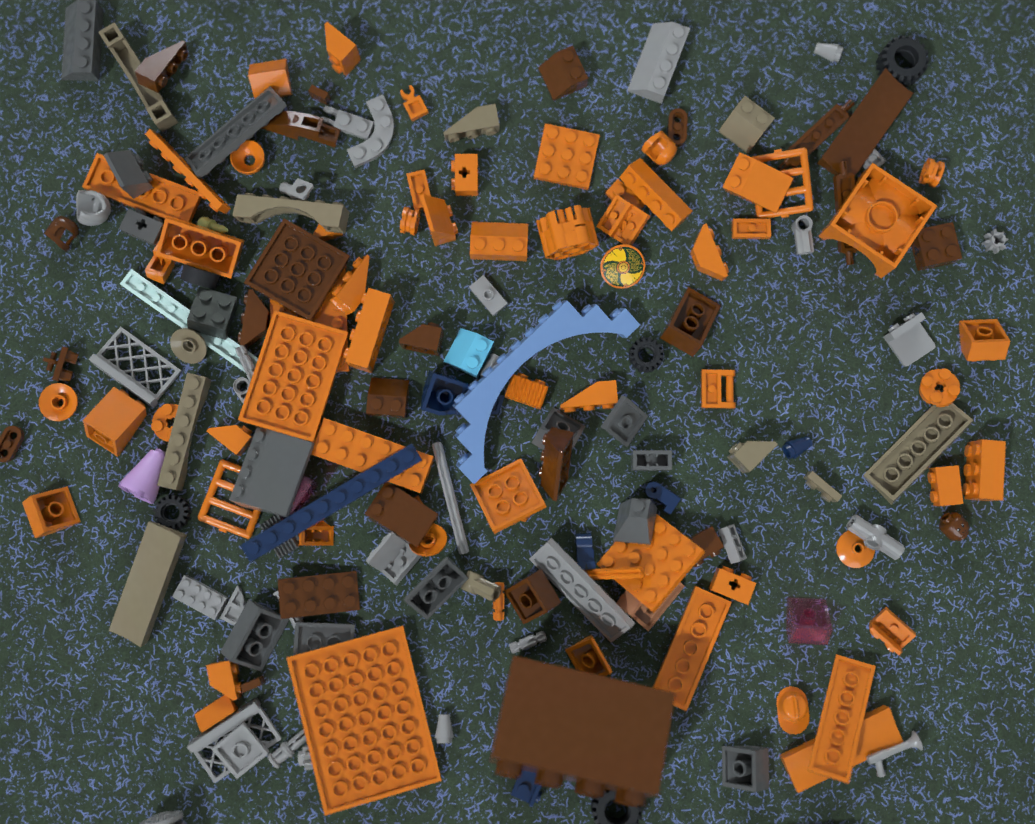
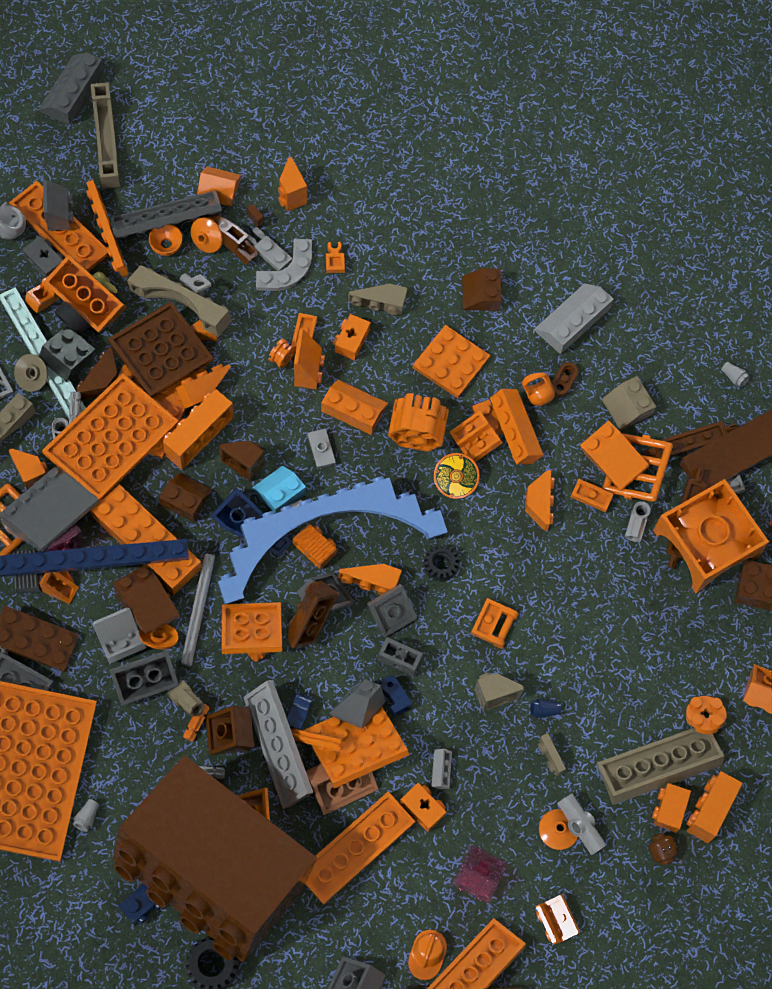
camera: 20 degrees right, 15 degrees down
(159, 67) = (128, 134): slope -> none
(284, 135) = (206, 235): none -> orange dish
(690, 322) = (496, 551): reddish brown slope -> none
(709, 542) = (418, 759): reddish brown brick -> none
(909, 339) = (696, 657): light grey bracket -> none

